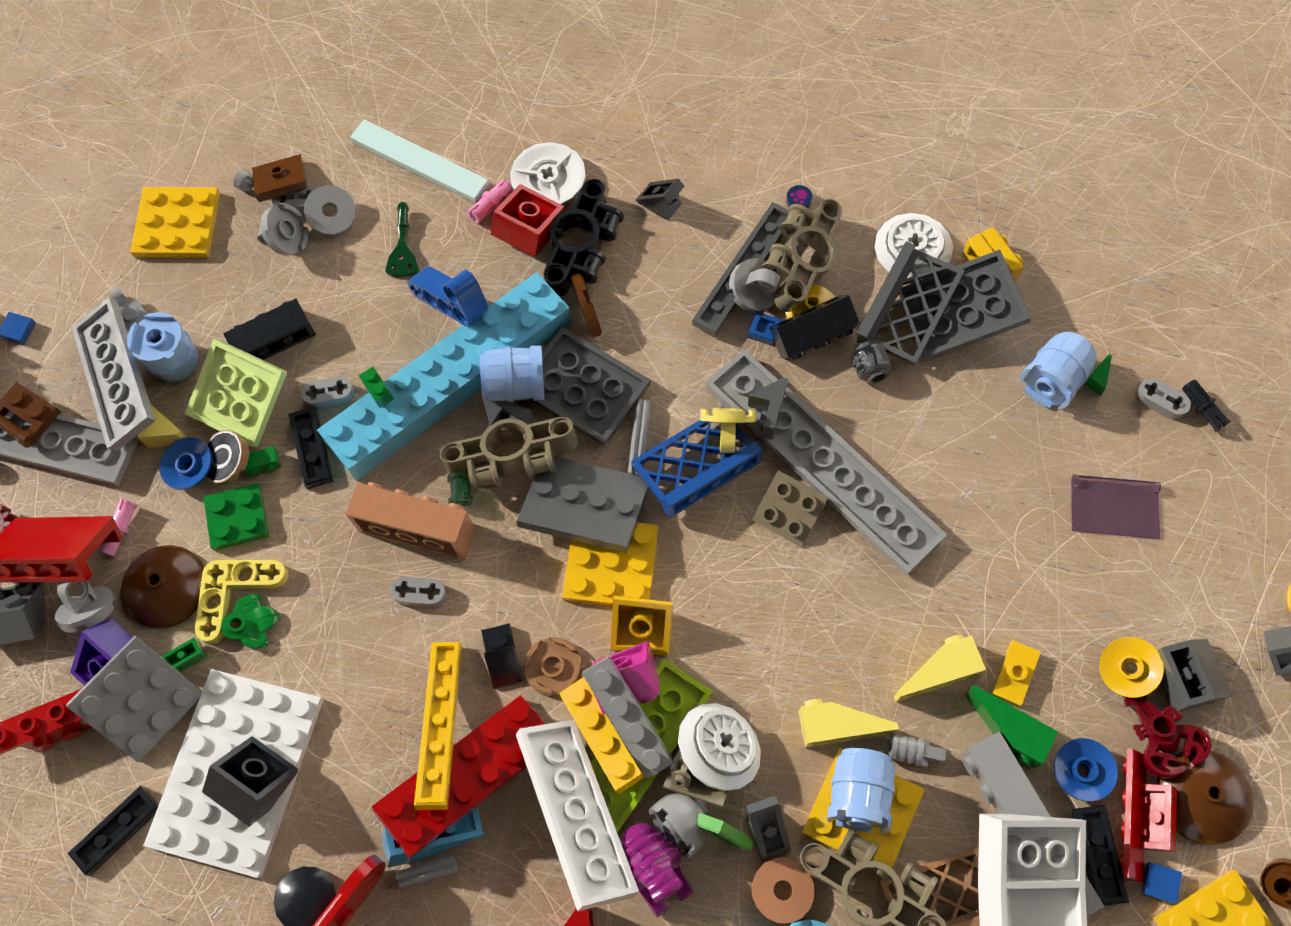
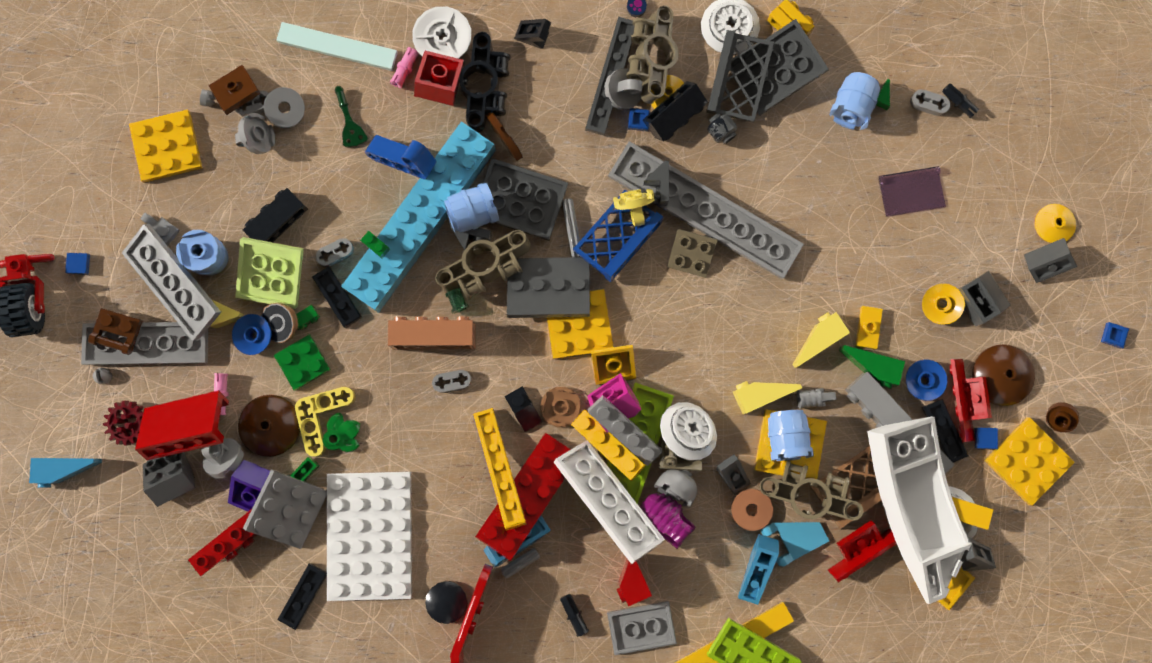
camera: 20 degrees left, 15 degrees up
(248, 780) = (384, 540): black slope -> none
(725, 832) = (708, 486): bright green tile -> none
(1165, 736) = (972, 344): dark red animal -> none

